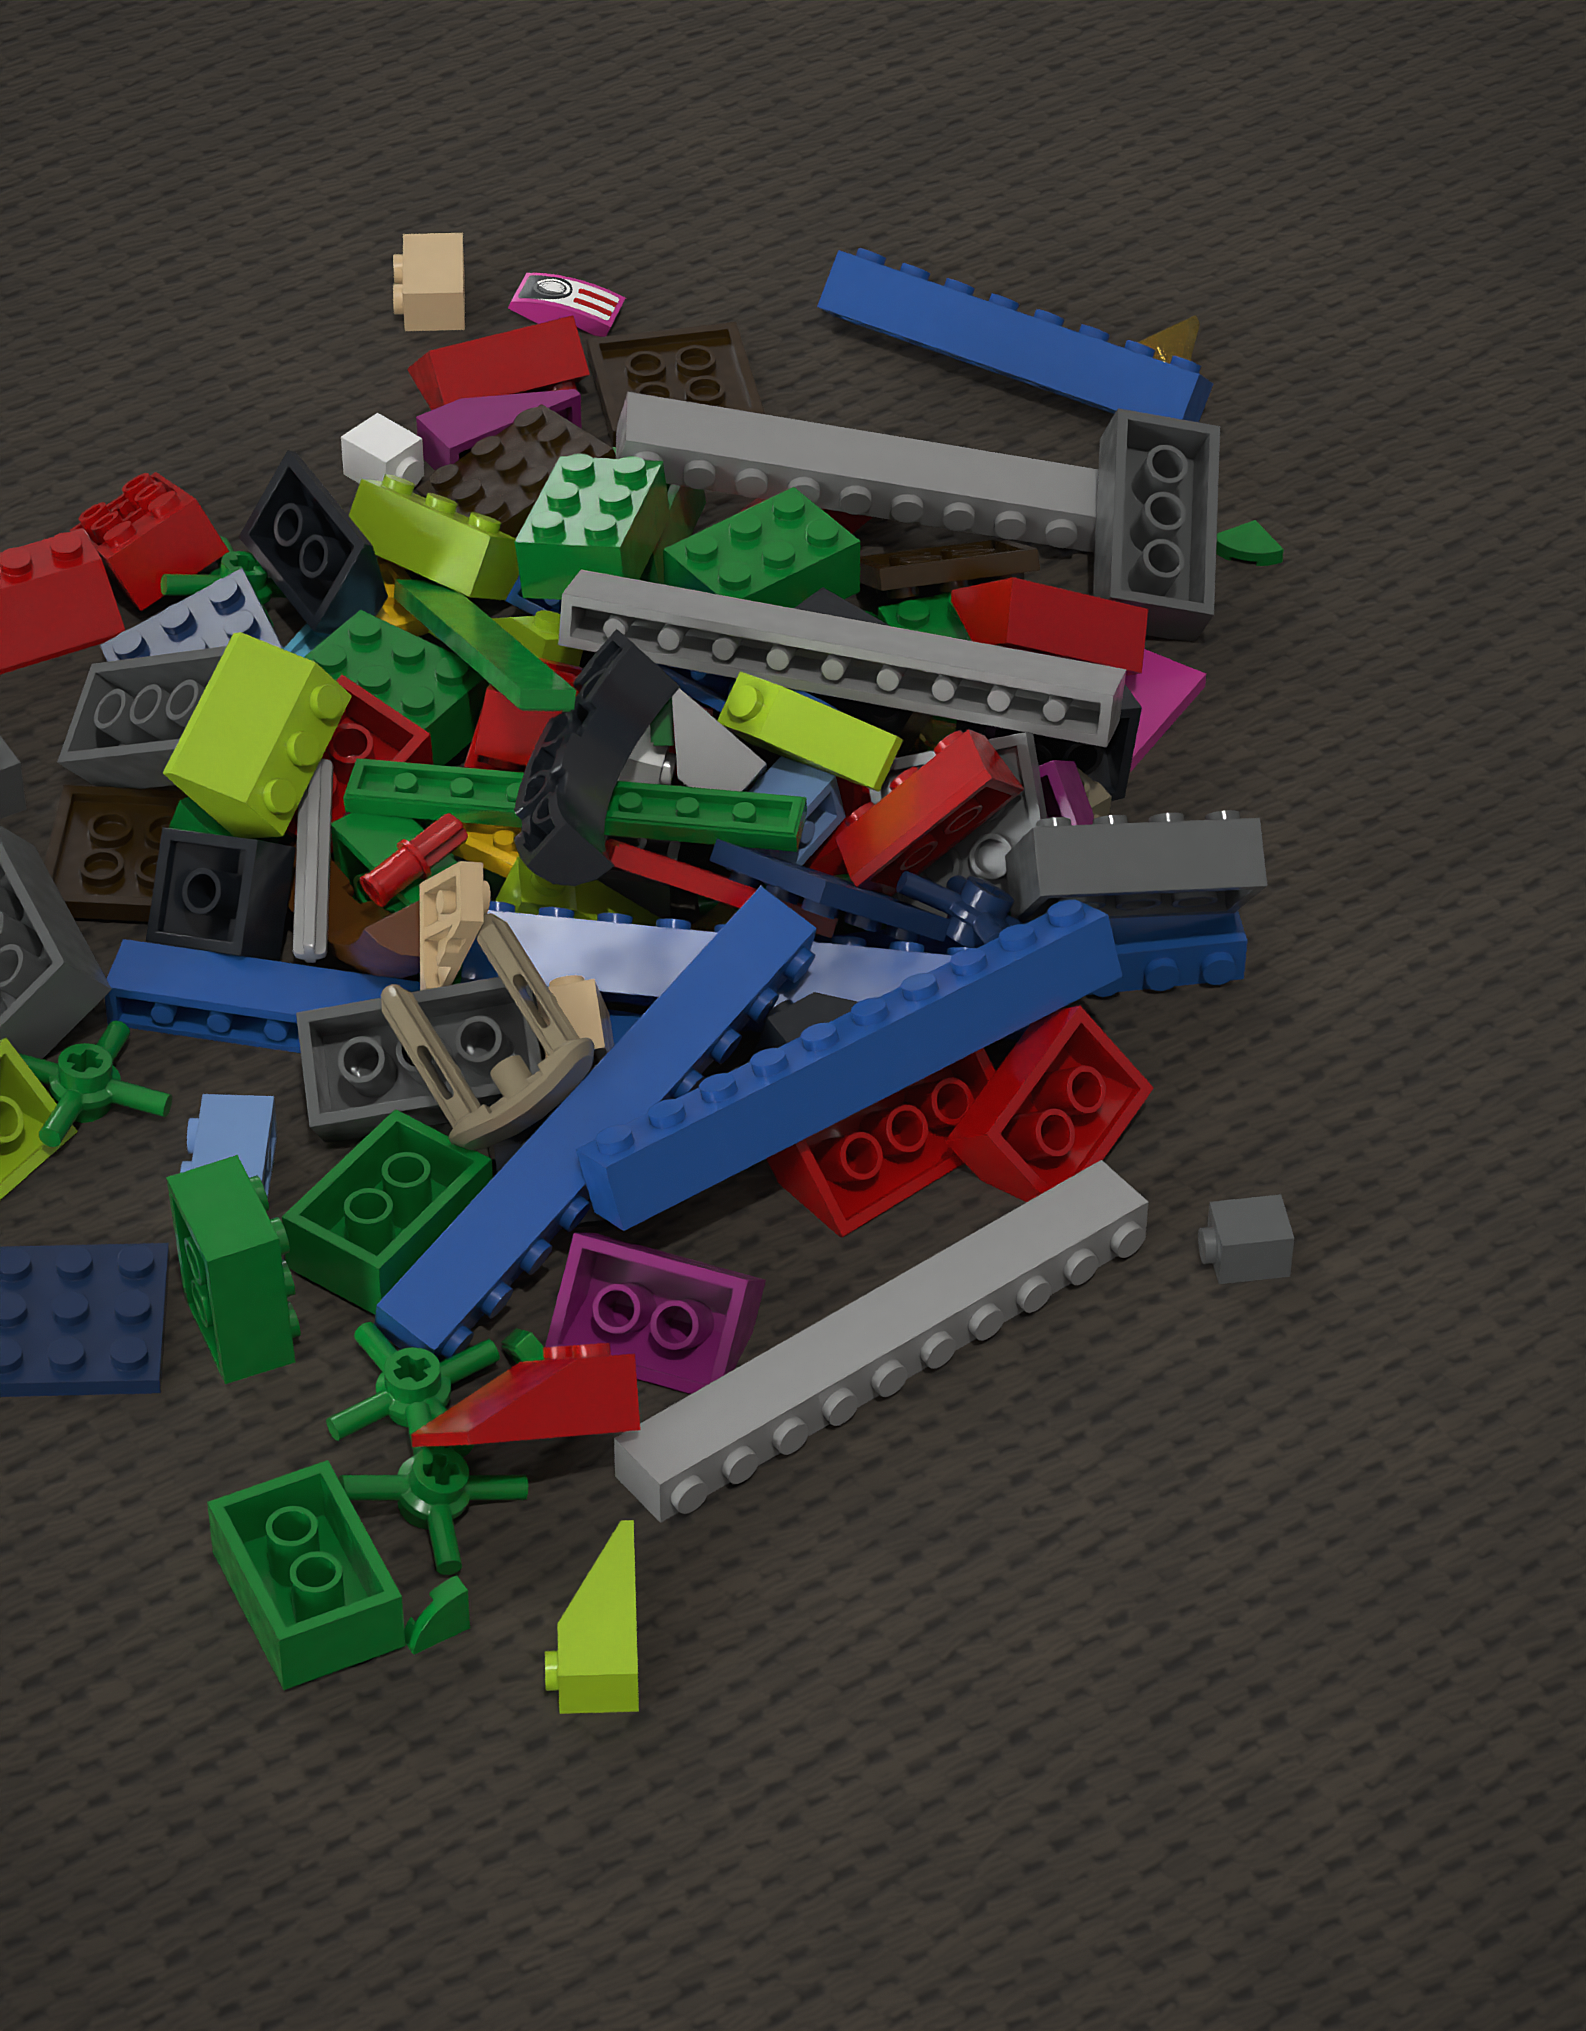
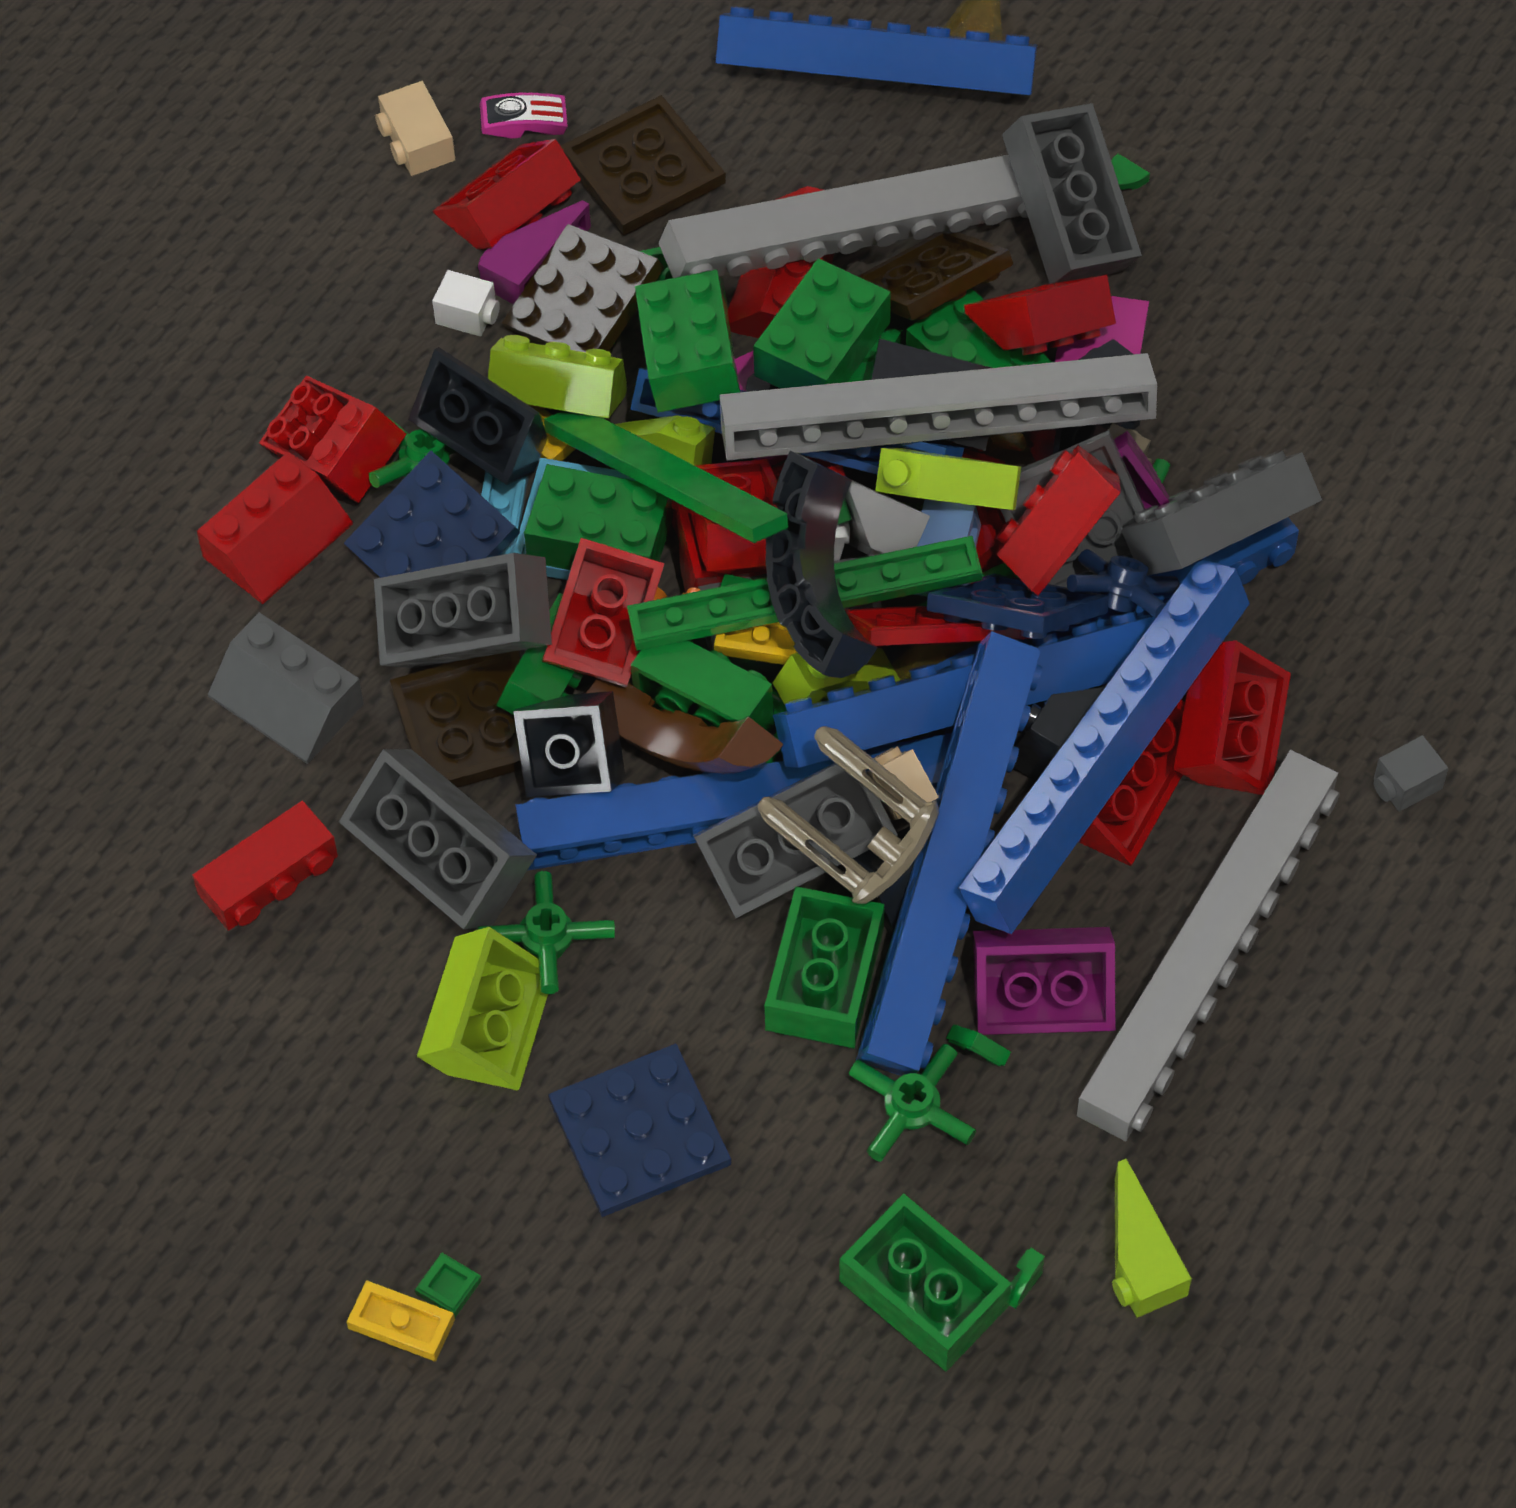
camera: 20 degrees left, 15 degrees up
(234, 1127) = (685, 957): medium blue brick -> none
(234, 1268) = (757, 1062): green brick -> none
(257, 737) = (558, 619): lime slope -> none
(313, 866) = (628, 695): light grey axle -> none
(414, 859) = (716, 680): red axle -> none
(434, 1490) = (971, 1177): green bar -> none
(450, 920) = (787, 736): tan wing -> none
(562, 1396) = (1022, 1096): red slope -> none

